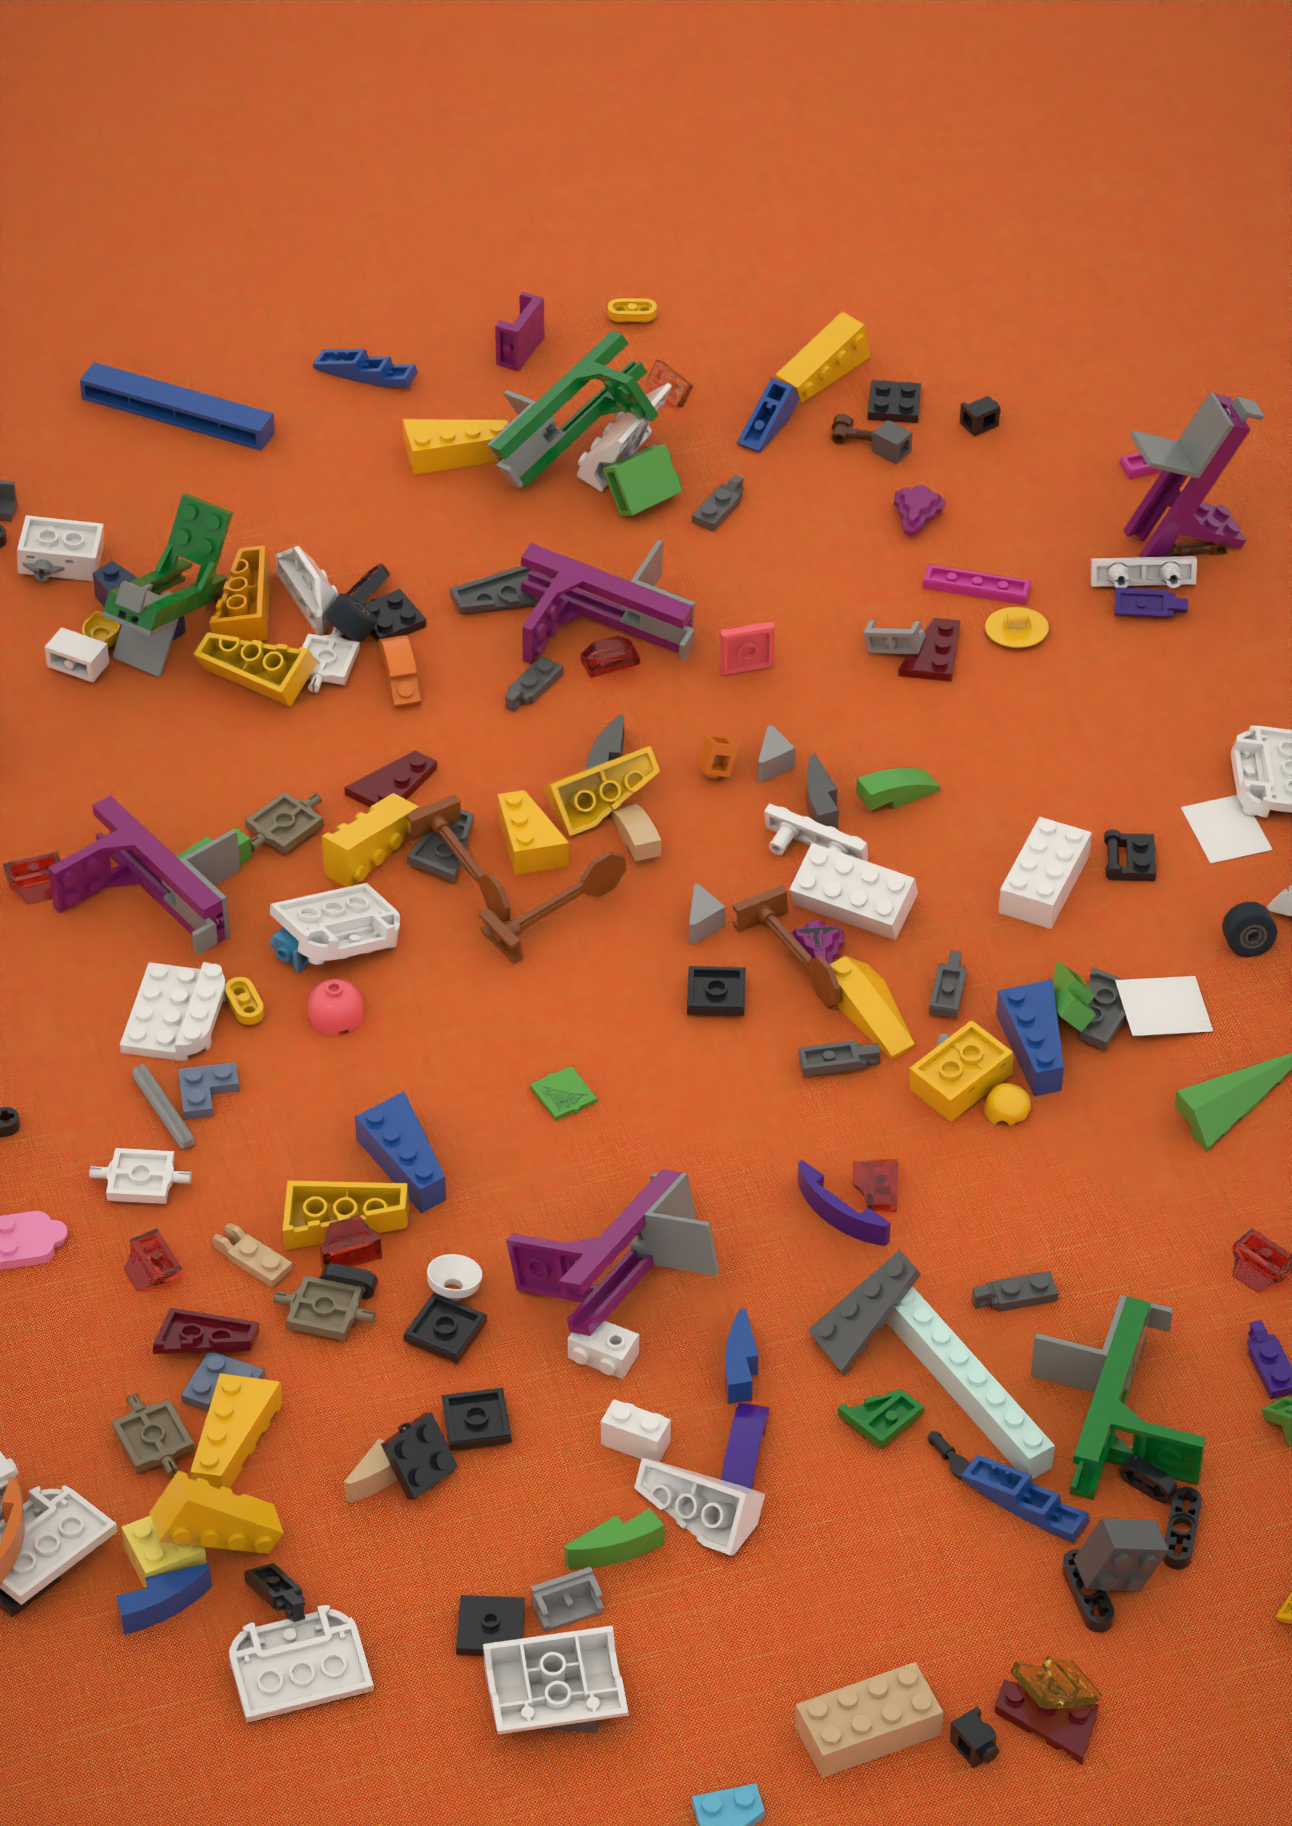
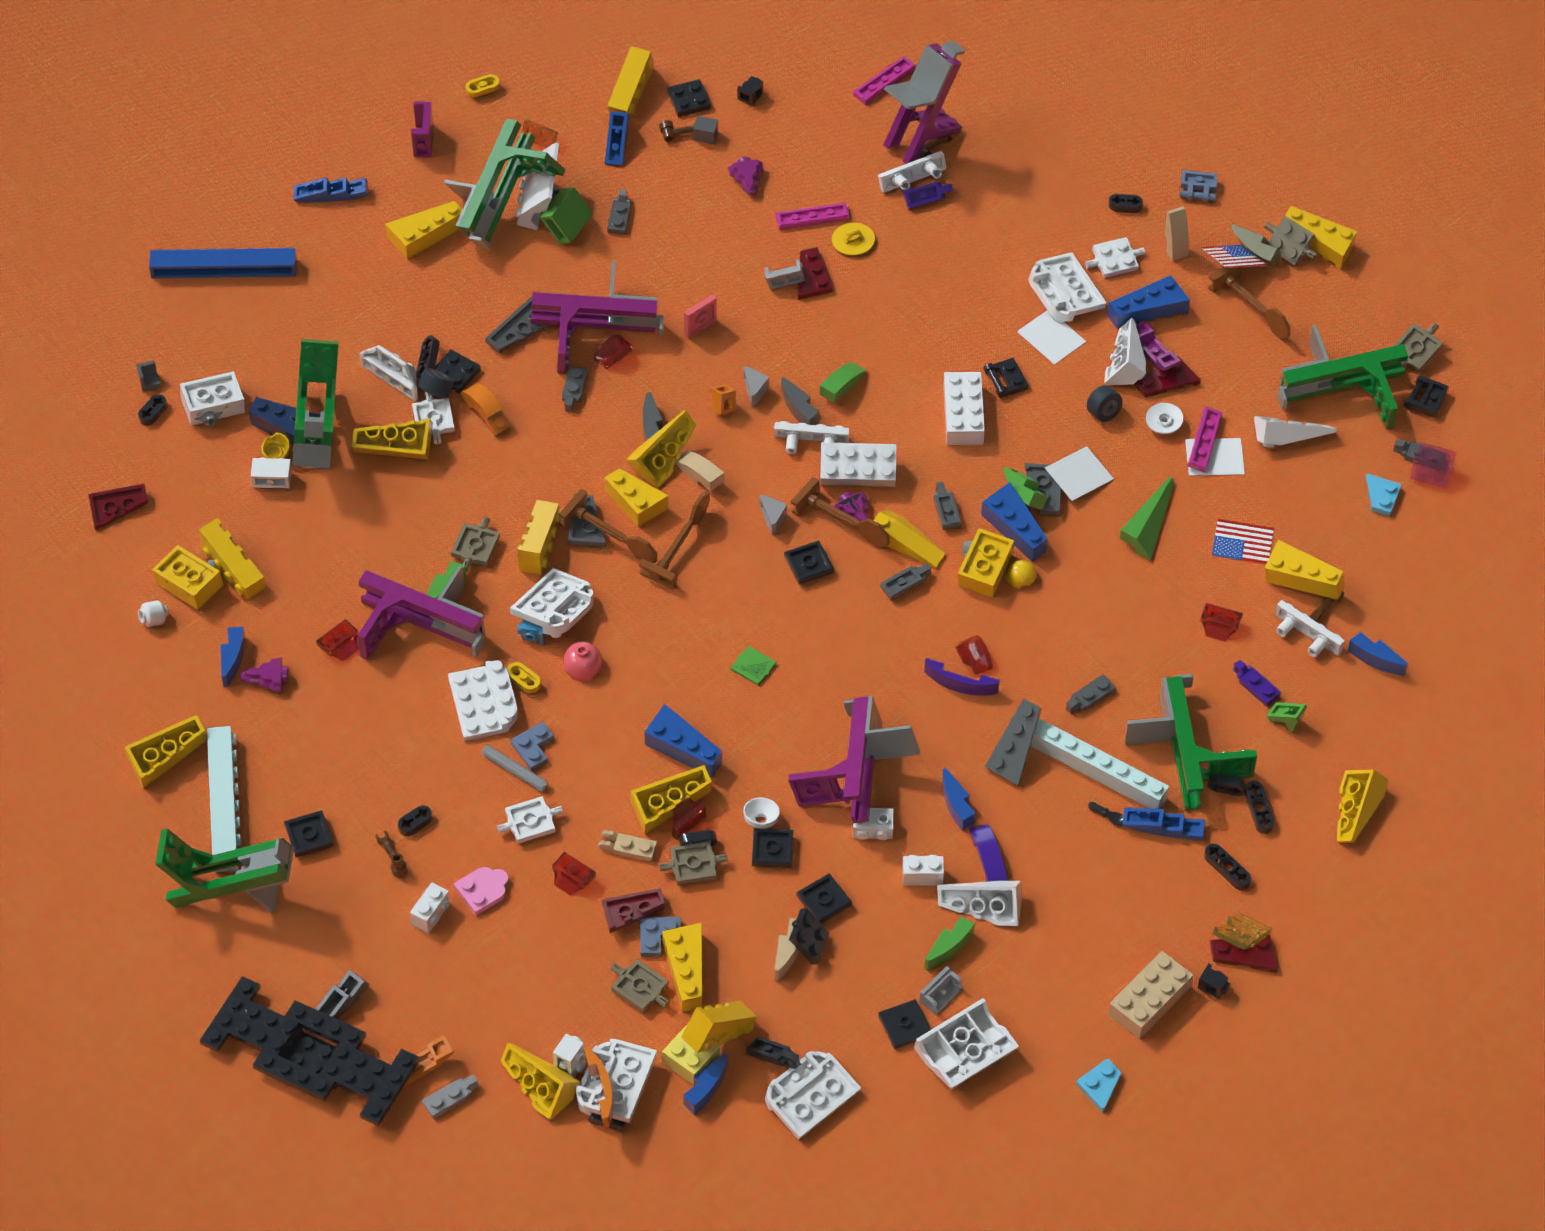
camera: 25 degrees left, 10 degrees up
(246, 597) = (359, 397): light orange wedge -> none
(398, 777) = (525, 490): dark red wing -> none
(883, 1416) = (1057, 804): green wing -> none
(1121, 1554) = (1241, 839): dark grey brick -> none

